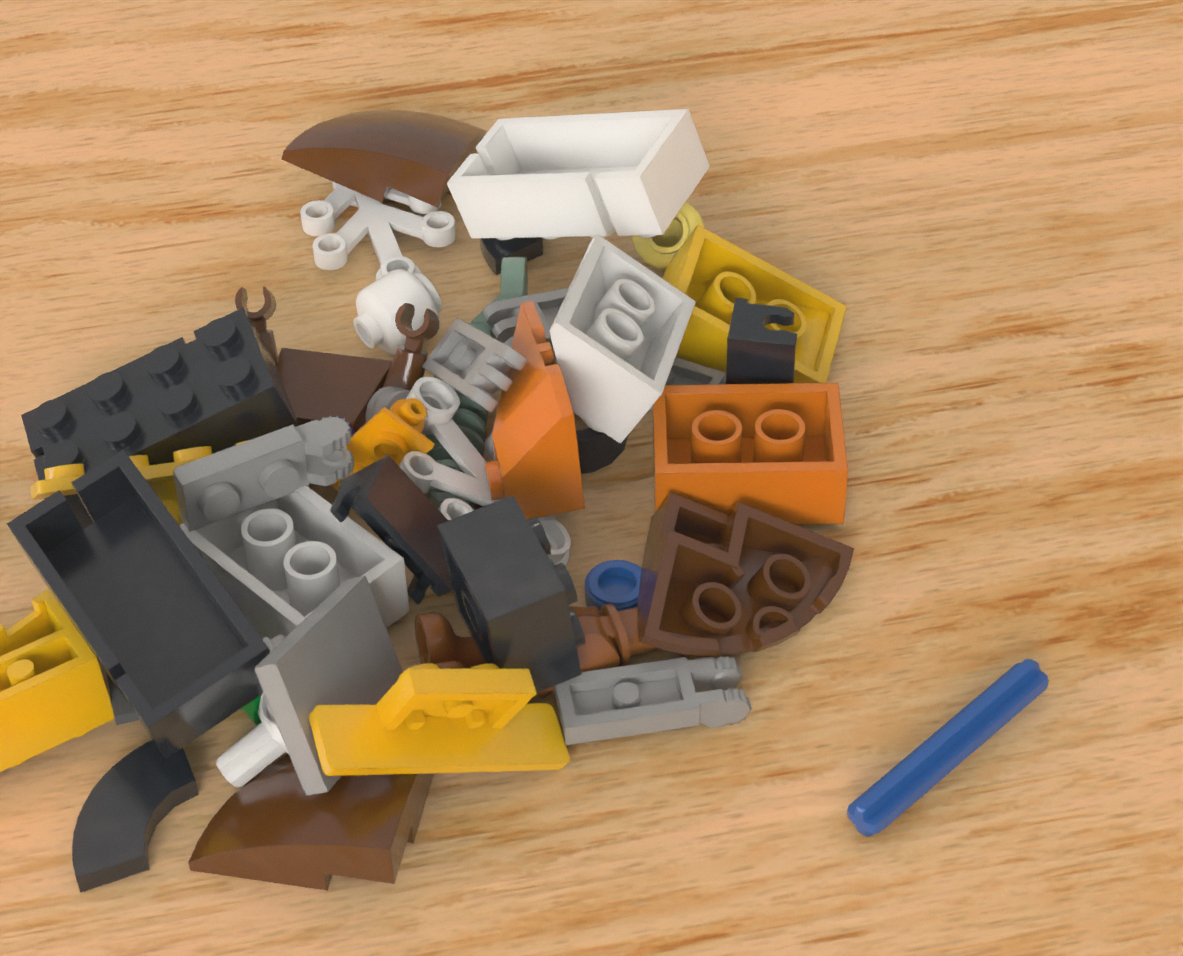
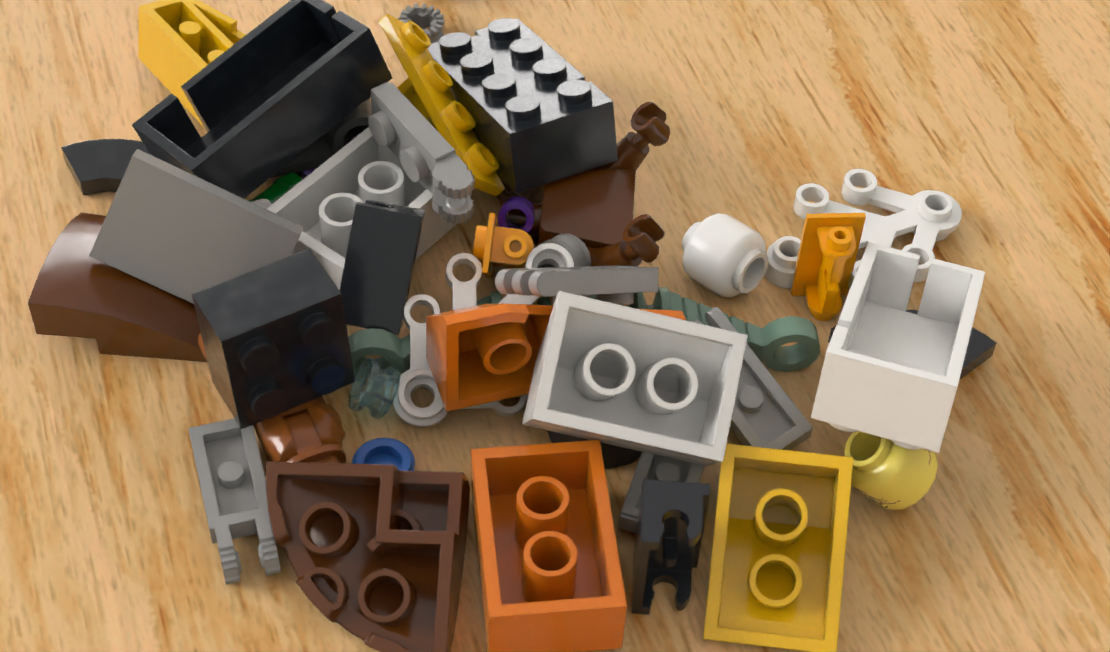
camera: 80 degrees right, 5 degrees up
(387, 151) = (968, 216): reddish brown brick -> none
(438, 212) = (826, 261): none -> light orange hinge
(443, 725) = (154, 333): yellow bracket -> none

